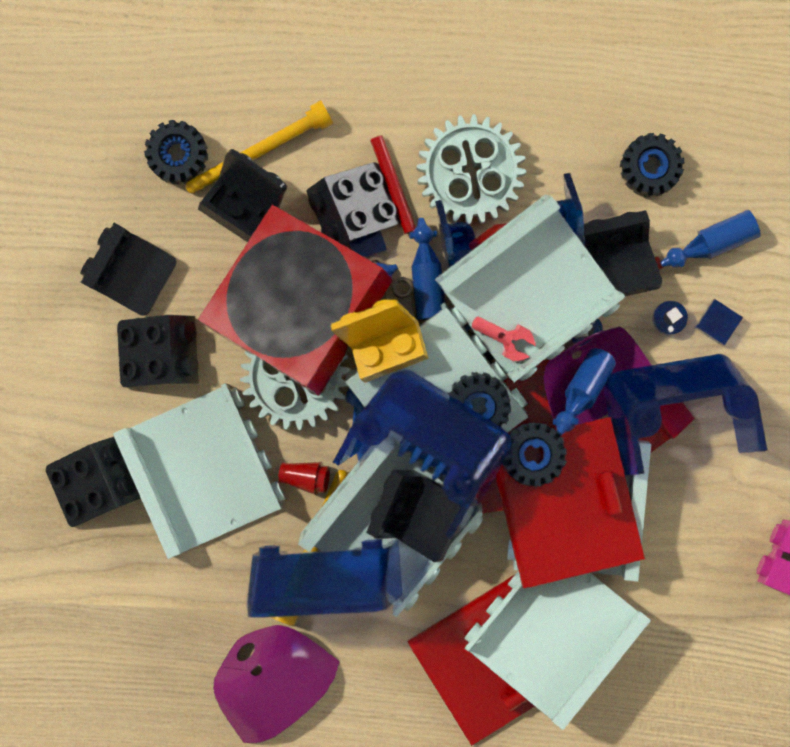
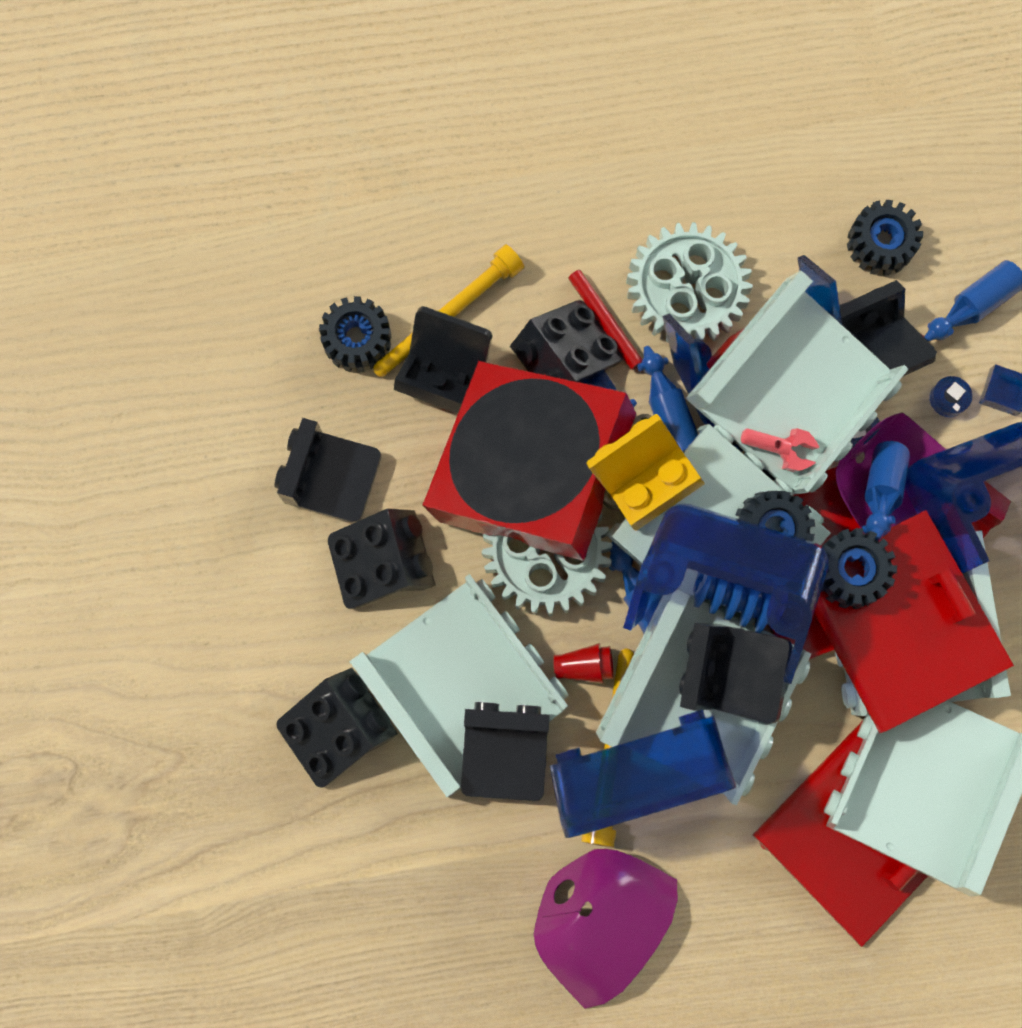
camera: 15 degrees left, 10 degrees down
(222, 533) = (504, 752): none -> black bracket

